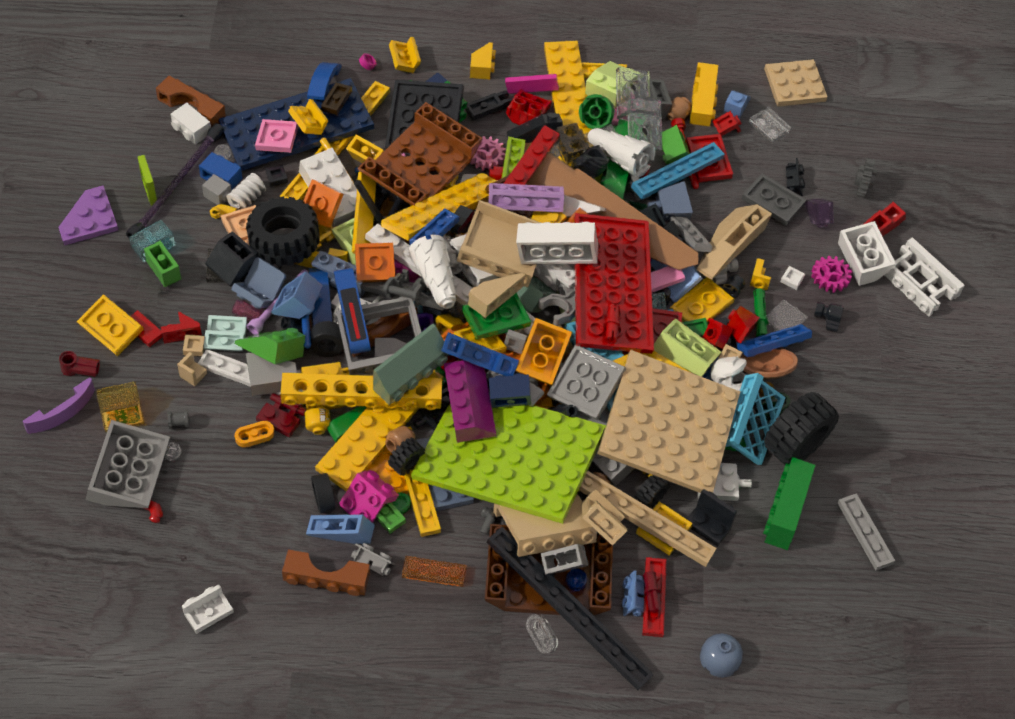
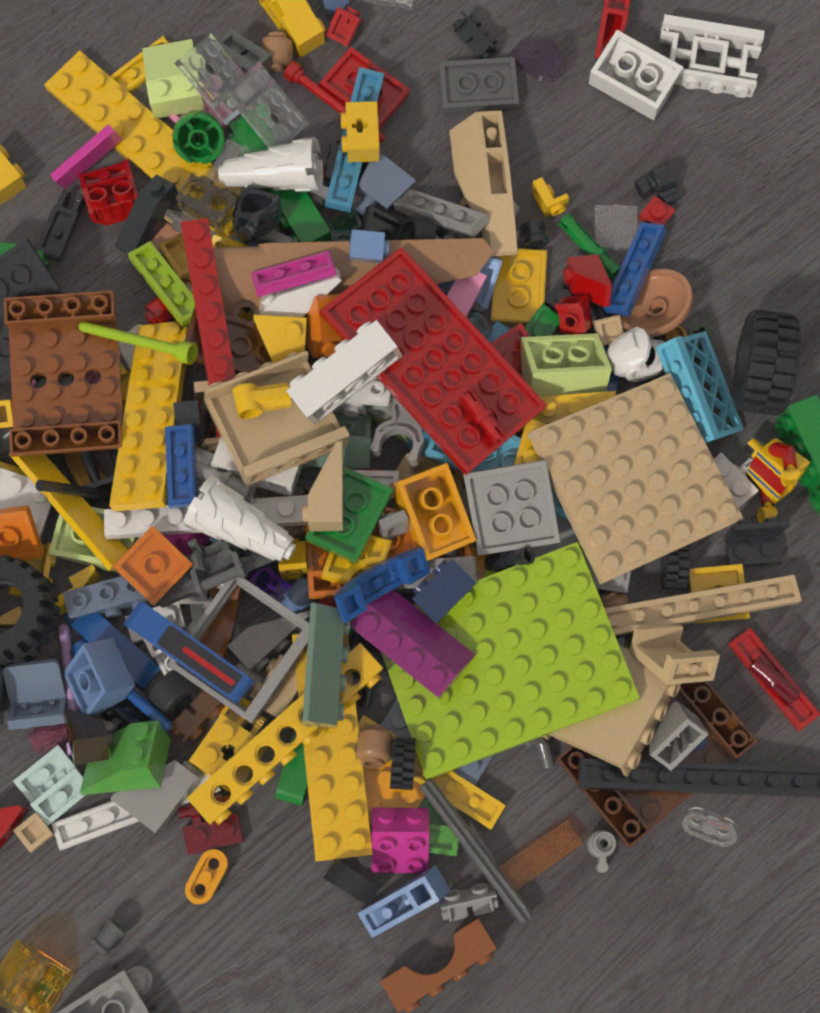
camera: 40 degrees left, 20 degrees up
(190, 370) = (62, 864): tan panel -> none
(263, 316) = (87, 737): none -> dark brown slope
(317, 419) = (262, 801): yellow head -> none
(319, 358) = (191, 725): none -> clear orange hinge
(402, 535) = (476, 851): none -> dark grey axle
(472, 592) = (601, 845): none -> light grey piece
(485, 180) = (184, 351): none -> lime piece
(489, 154) = (121, 283): bright pink gear -> none
(499, 224) = (254, 400): none -> yellow piece
(527, 197) = (248, 338): lavender fence -> none
(581, 192) = (293, 273): none -> dark pink tile
(630, 206) = (368, 246): none -> medium blue brick
(633, 586) = (745, 689): medium blue hinge -> none
(673, 145) = (319, 108): bright green brick -> none
(683, 165) = (361, 118): none -> yellow brick
(757, 490) = (776, 472): none -> torso
(792, 278) = (580, 169): white tile -> none
(817, 327) = (656, 212): none -> red plate
(831, 274) = (628, 127): dark pink gear -> none

